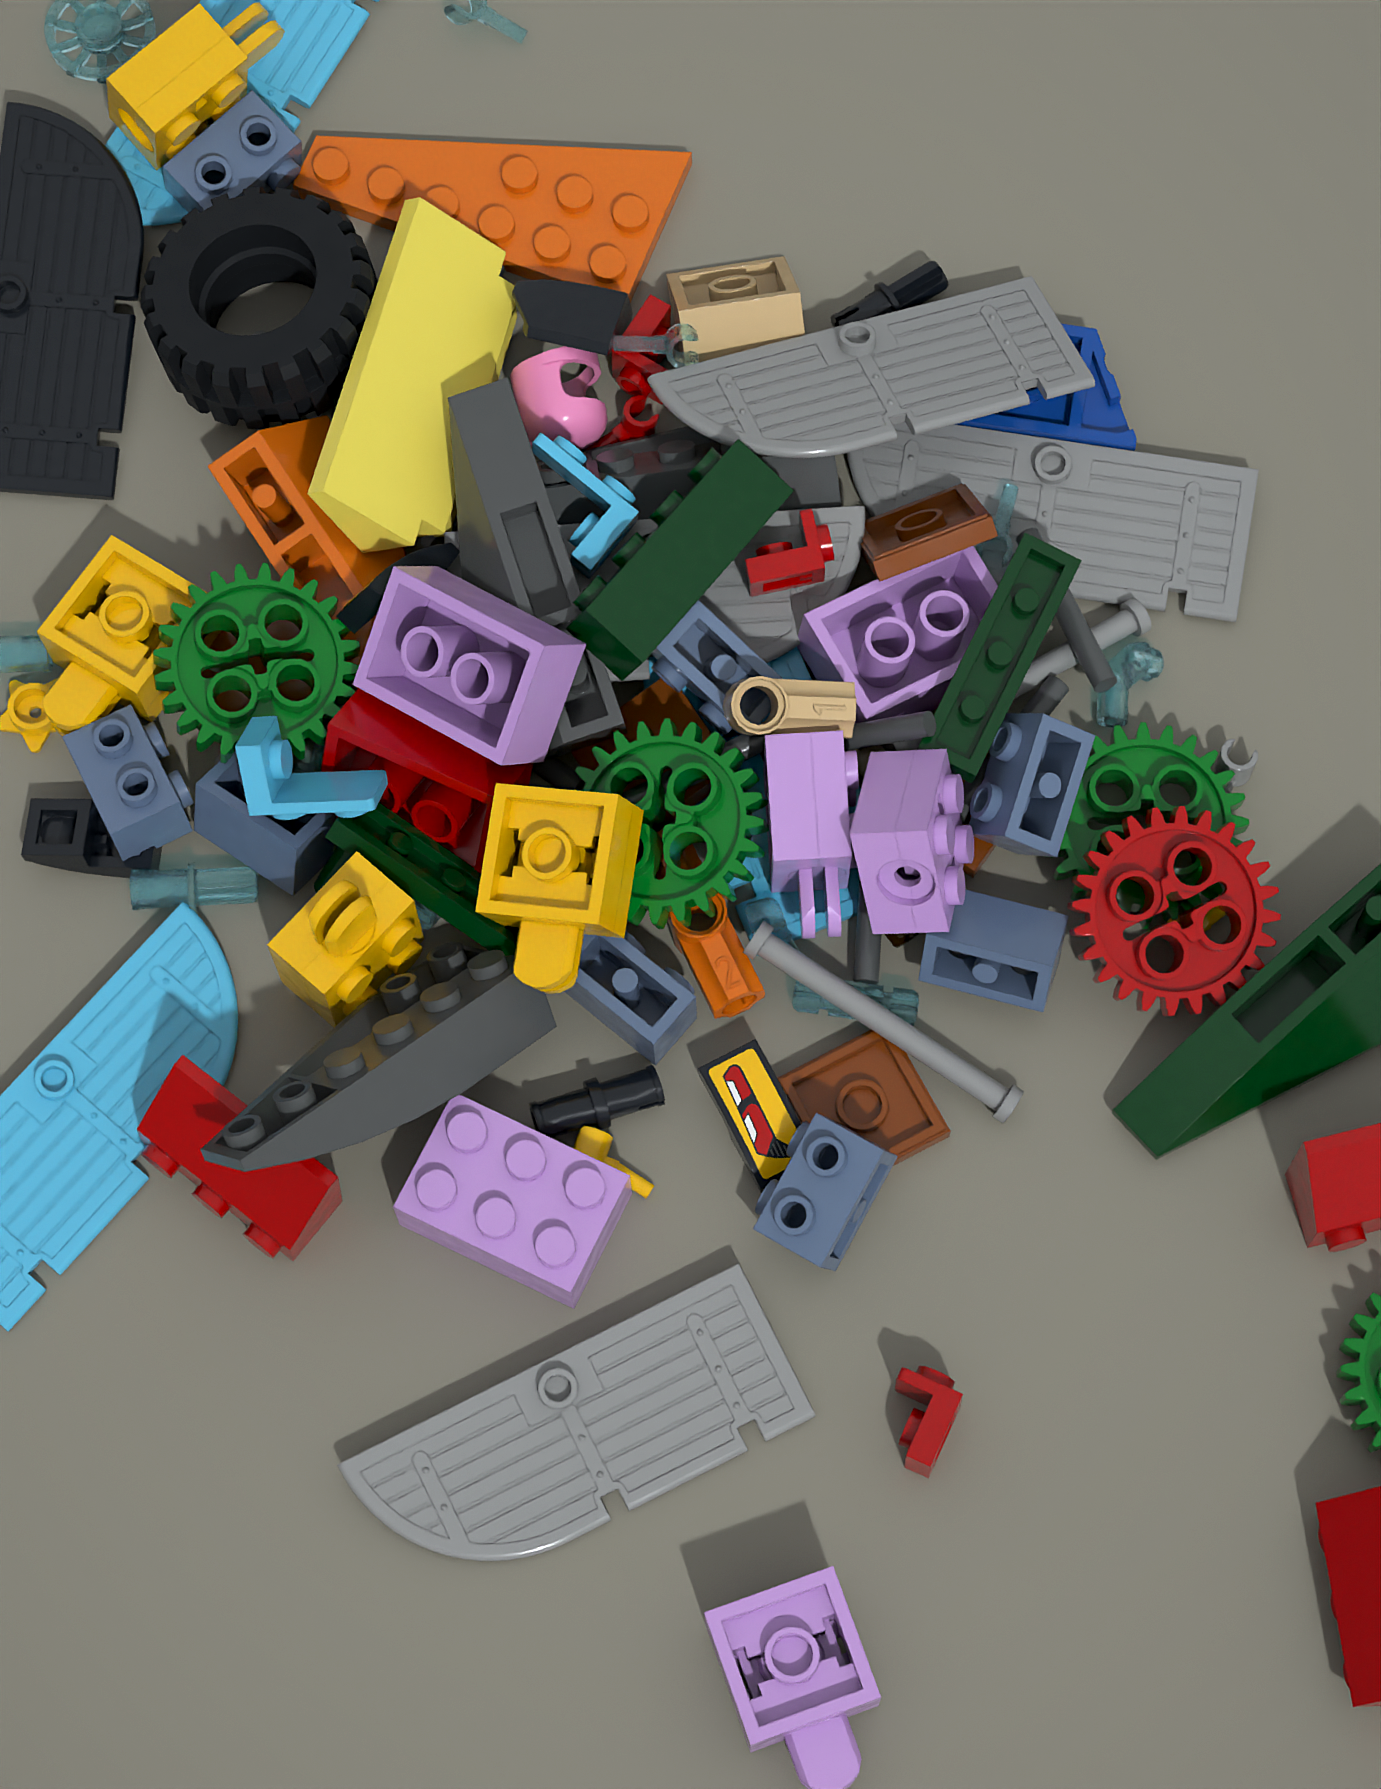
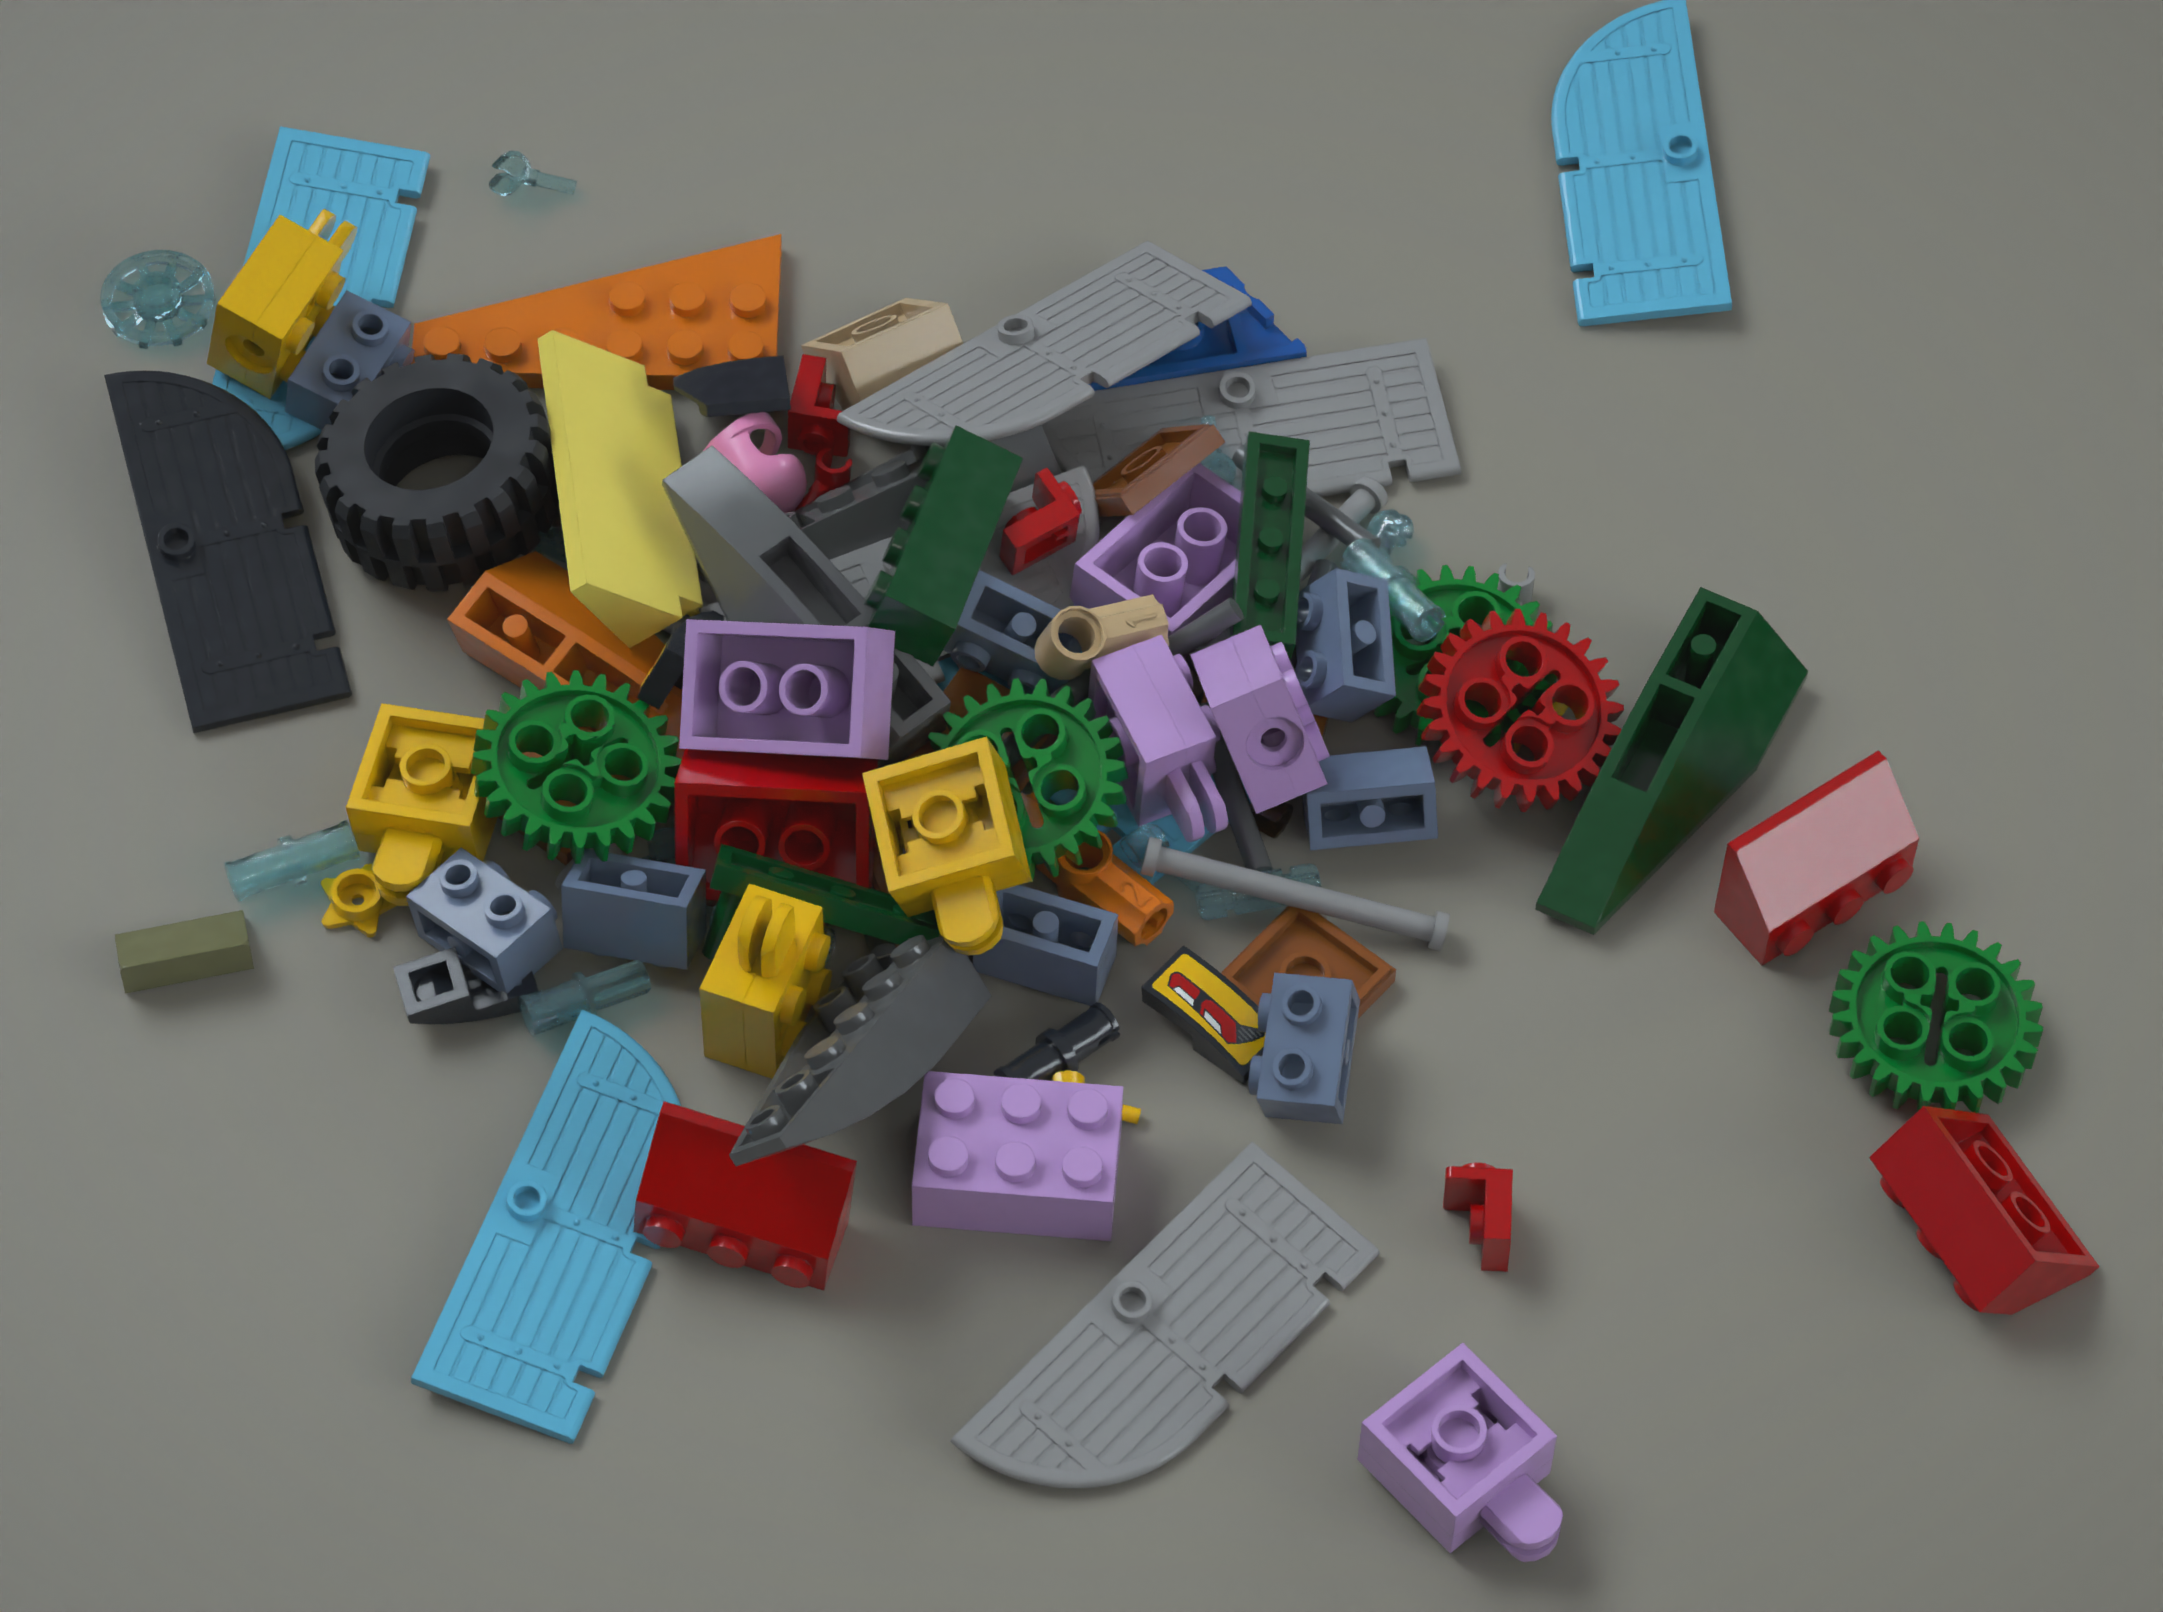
camera: 25 degrees left, 15 degrees down
(276, 791) = (665, 861): medium azure bracket -> none
(595, 536) = (847, 520): medium azure bracket -> none
(662, 344) = (834, 388): clear light blue hand -> none
(902, 294) = (1043, 281): black axle -> none
(1108, 753) = (1406, 600): none -> clear light blue pin

